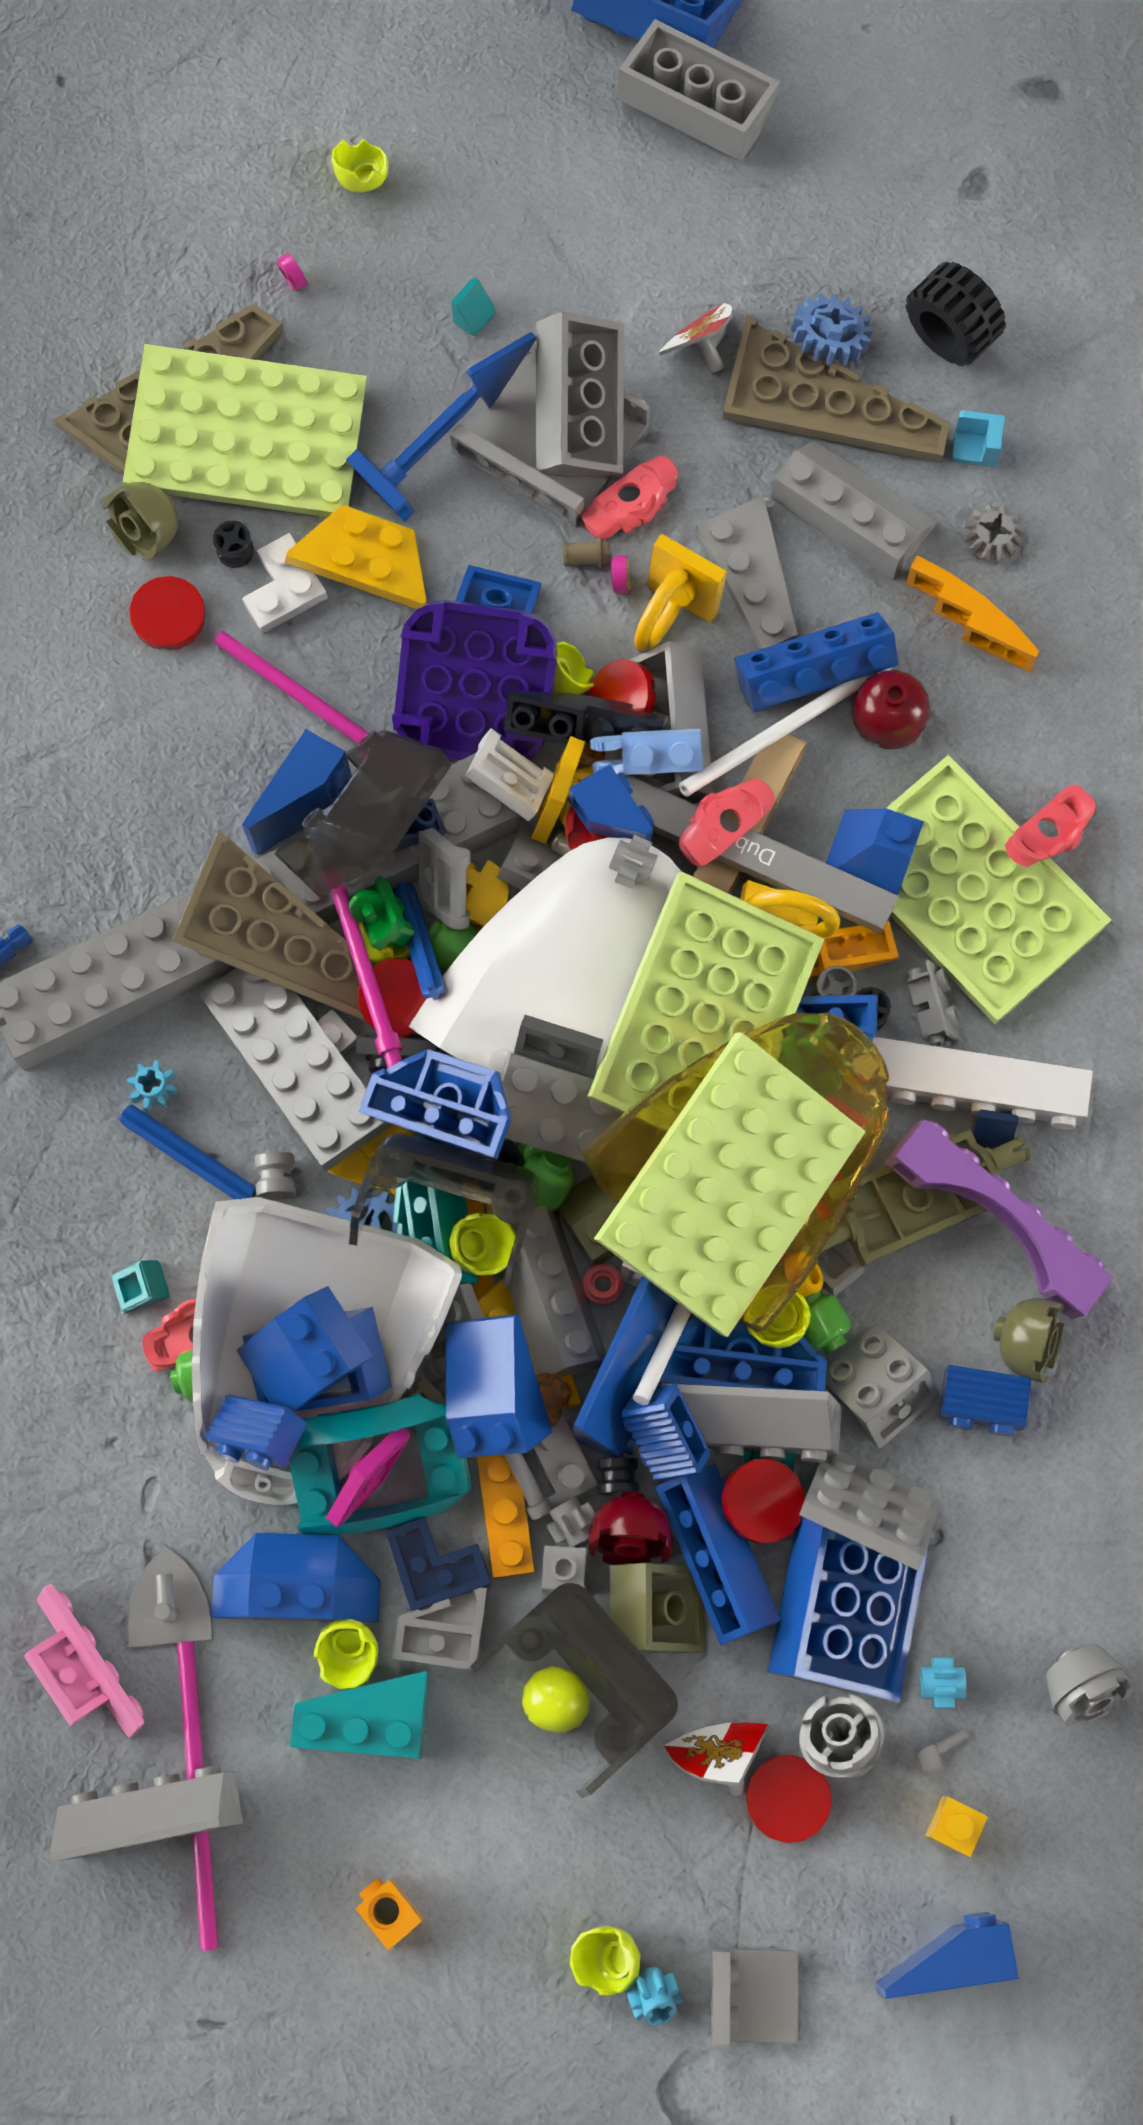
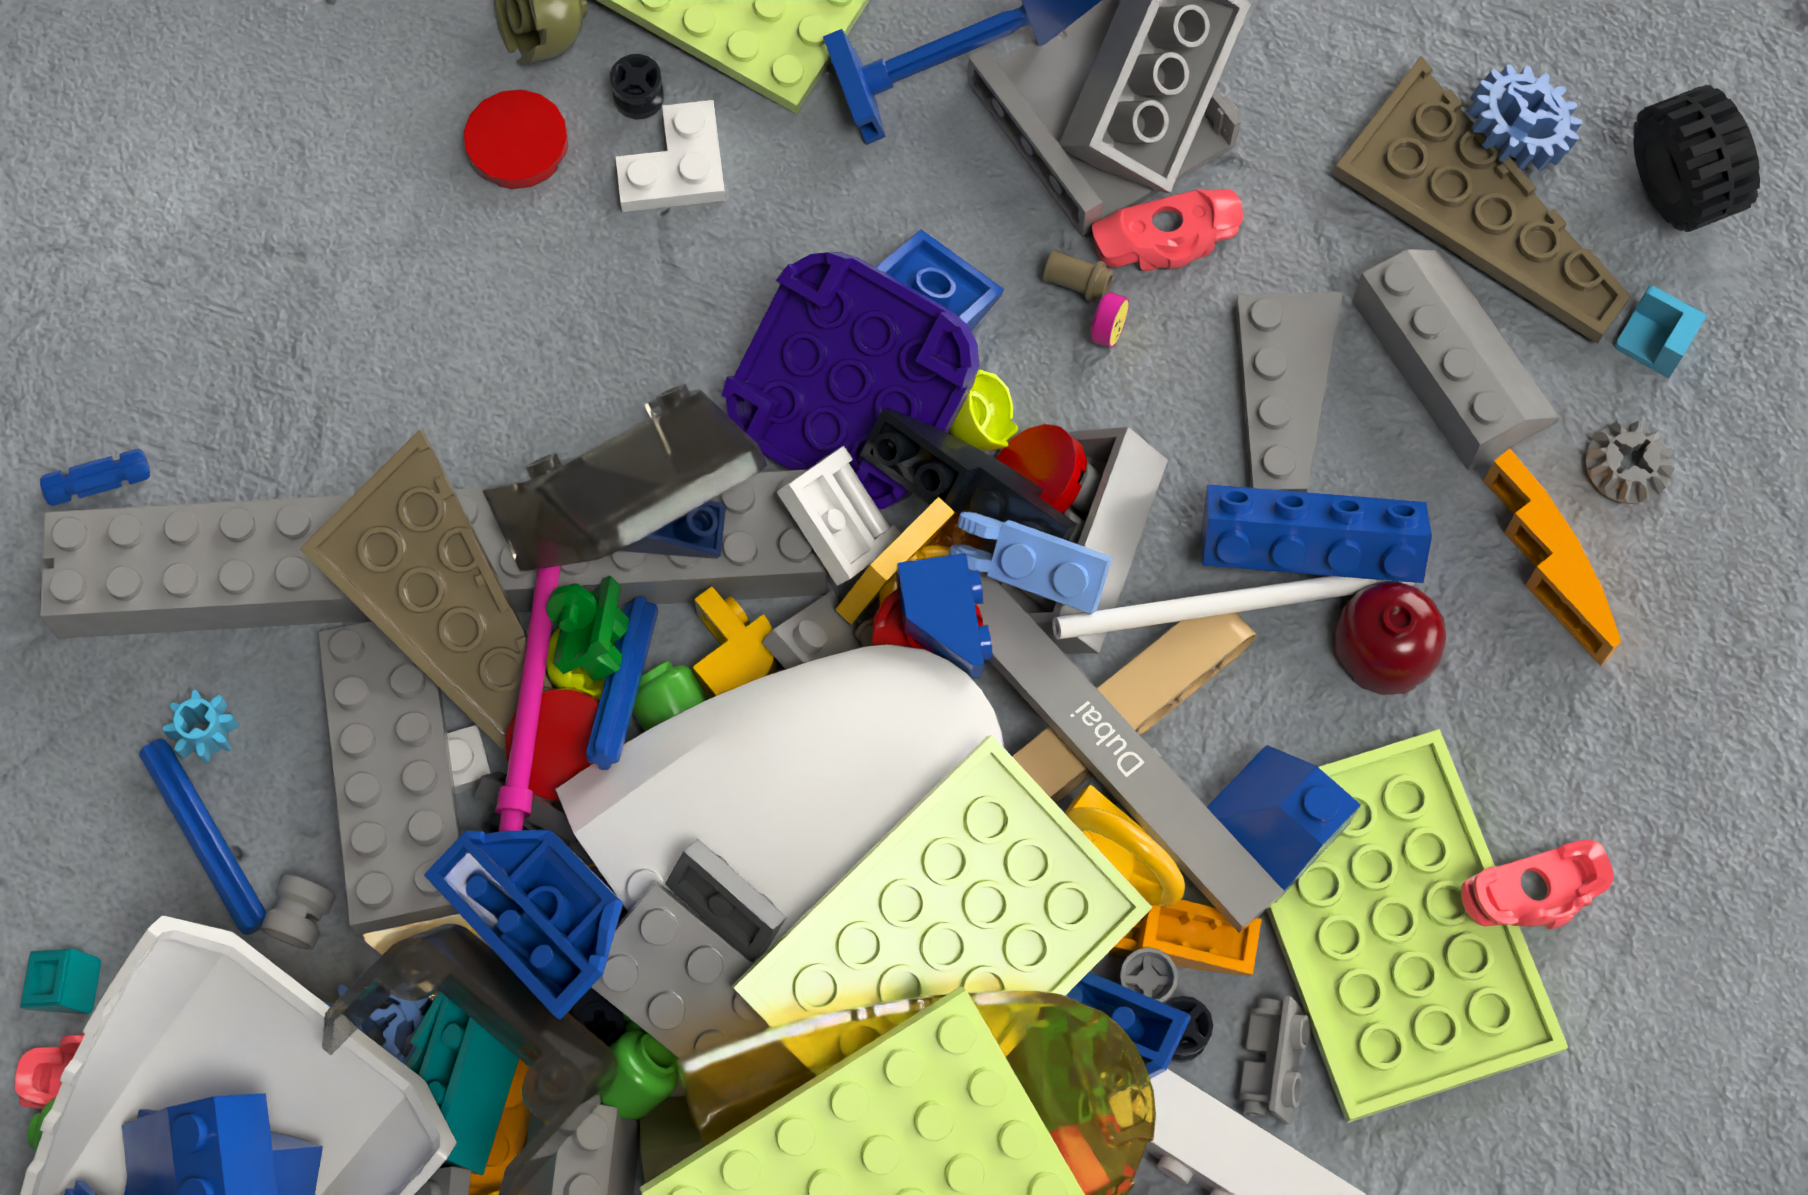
camera: 20 degrees right, 5 degrees down
(290, 687) = (623, 289): dark pink piece -> none
(305, 781) = (561, 417): blue slope -> none
(364, 555) = (792, 163): yellow wing -> none
(443, 879) = (689, 615): light grey plate -> none
(482, 1244) = (495, 1123): neon yellow hair -> none
(633, 861) = (935, 695): light grey gear -> none
(682, 581) = (1185, 359): yellow tile -> none
(706, 837) = (1058, 702): coral piece -> none
(707, 333) = (1358, 63): shield -> none

